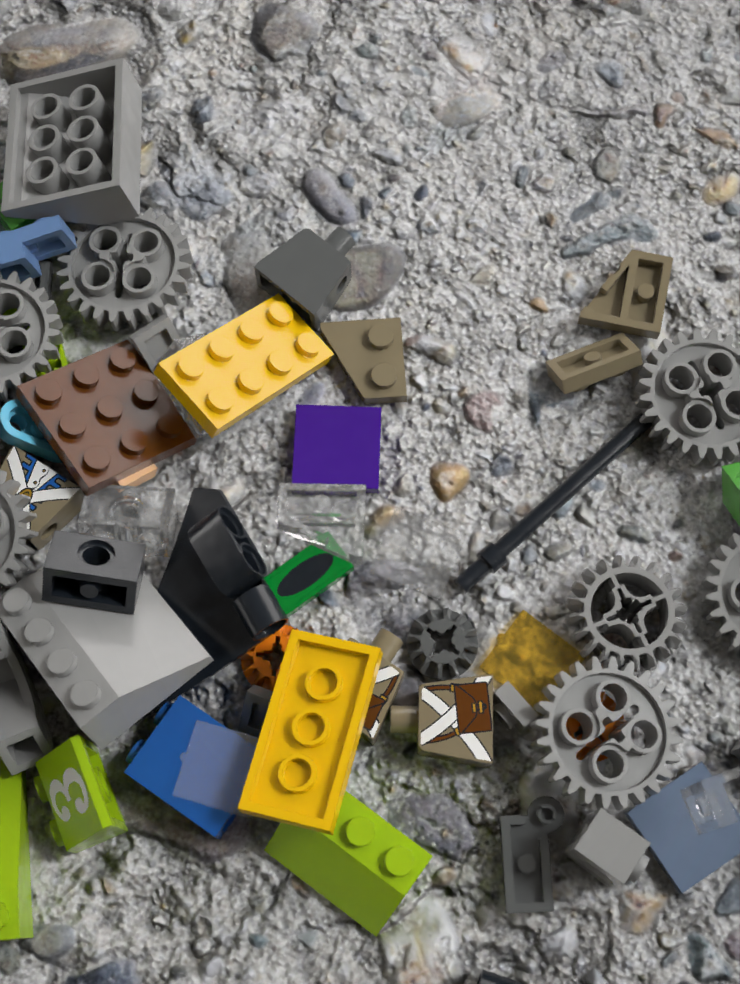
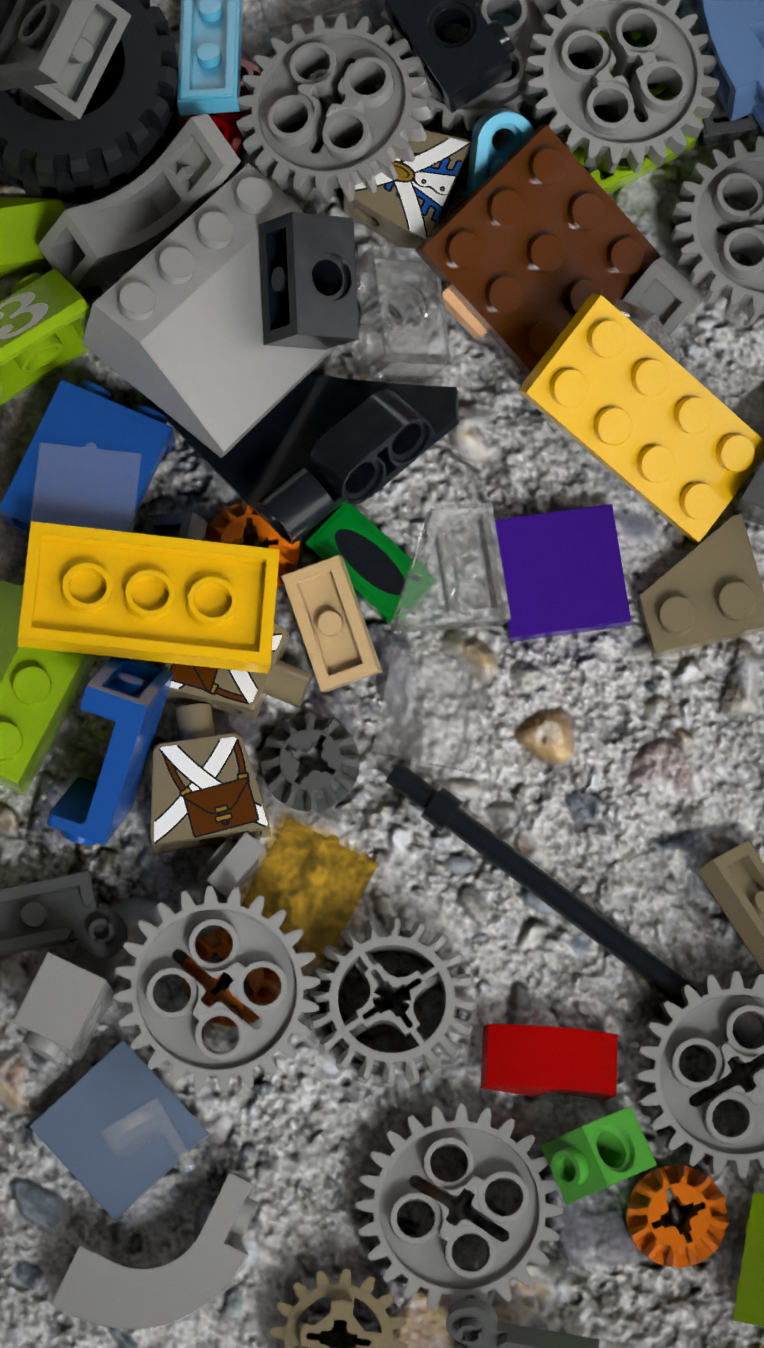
camera: 75 degrees right, 5 degrees up
(346, 608) = (331, 623): none -> tan plate
(458, 797) = (134, 698): none -> blue panel
(680, 516) = (549, 1059): none -> red slope

